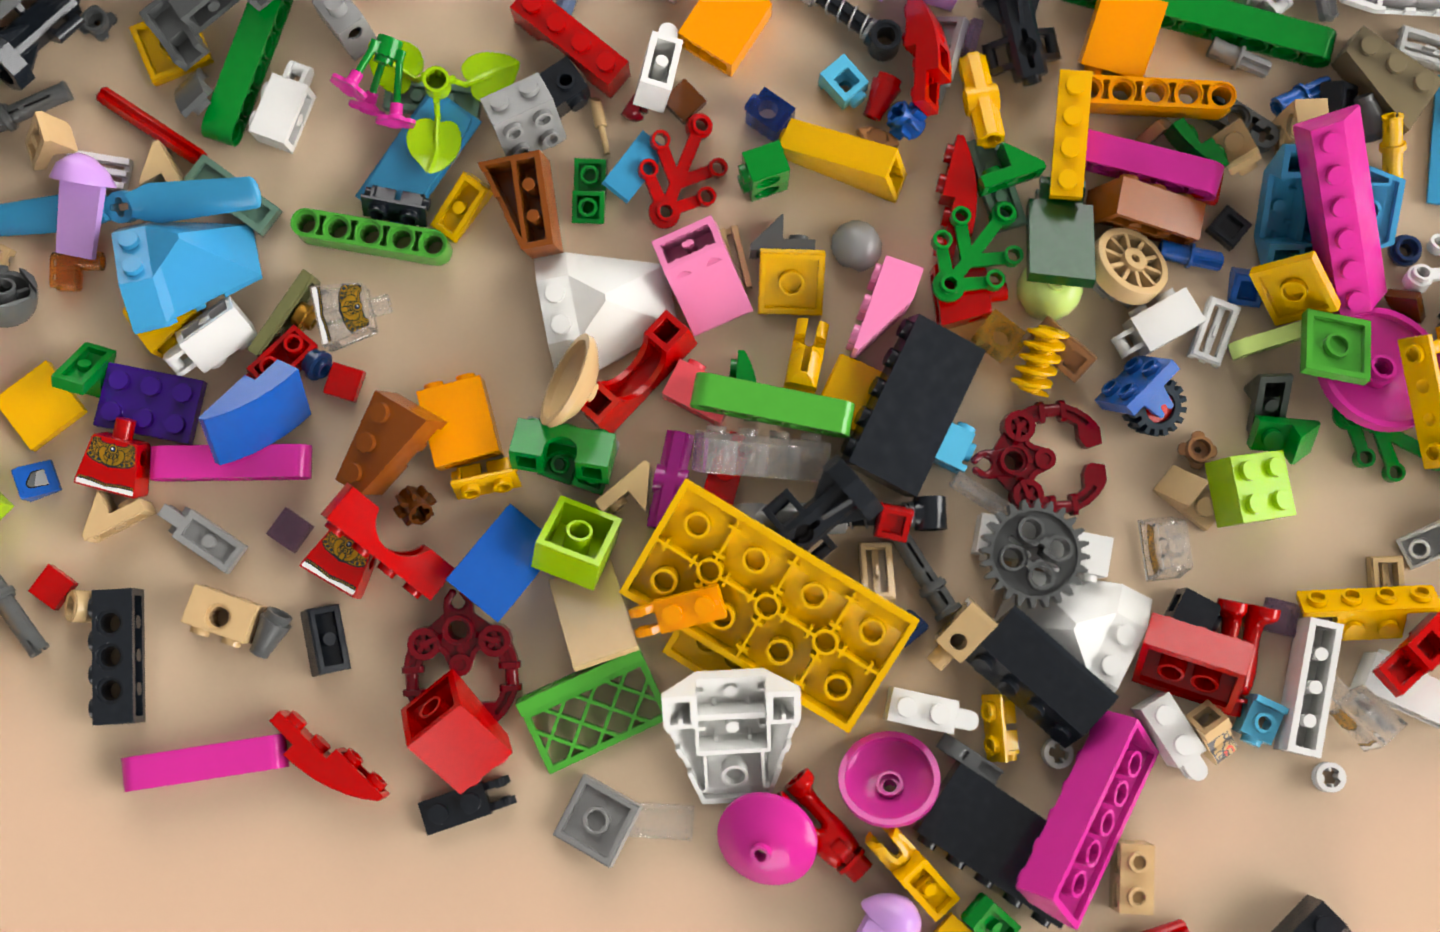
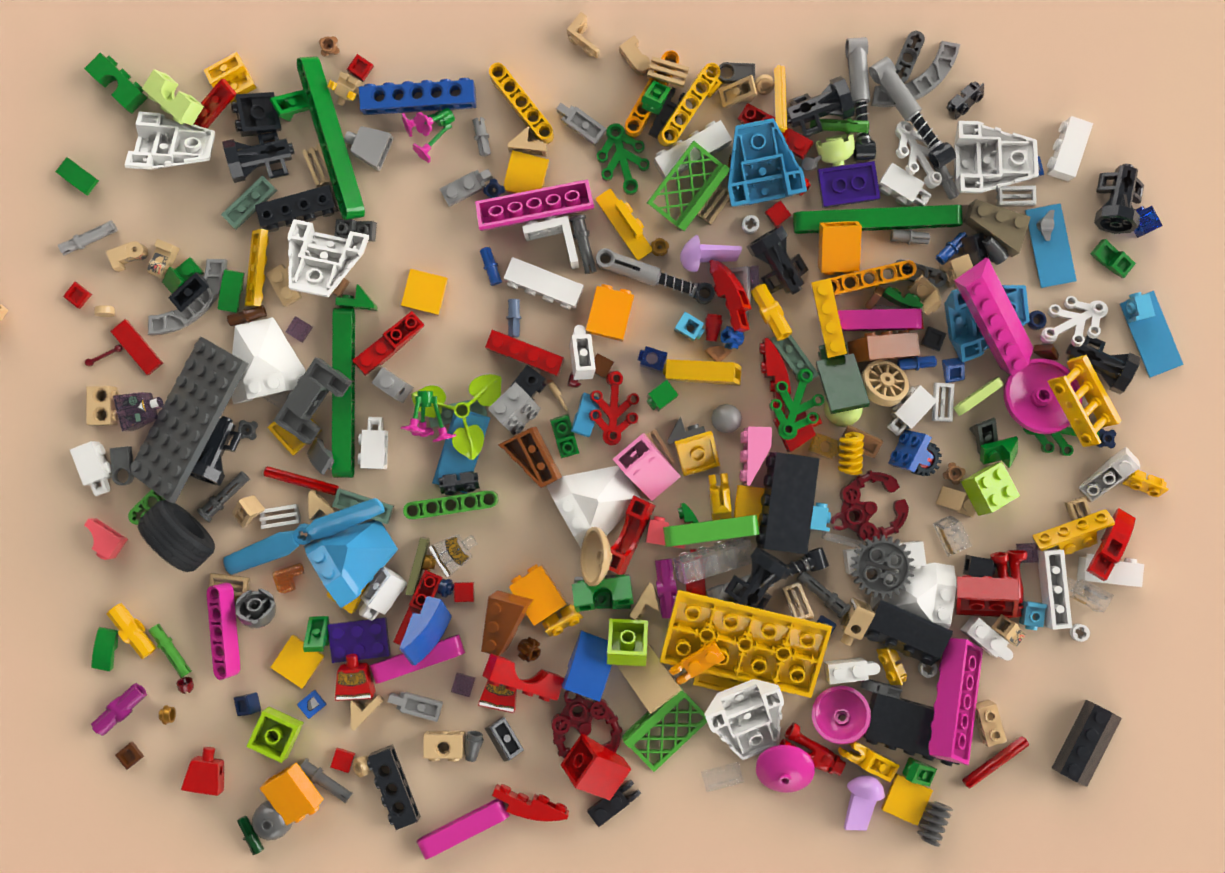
camera: 20 degrees left, 5 degrees up
(80, 204) = (281, 543): lavender piece -> none
(461, 206) = (495, 469): yellow slope -> none
(598, 820) = (689, 788): light grey plate -> none
(893, 523) = (799, 573): red tile -> none
(1016, 169) = (803, 346): green slope -> none
(1294, 286) = (981, 367): yellow plate -> none
(1335, 347) = (1014, 395): bright green plate -> none
(1392, 143) = (1012, 263): yellow pin -> none

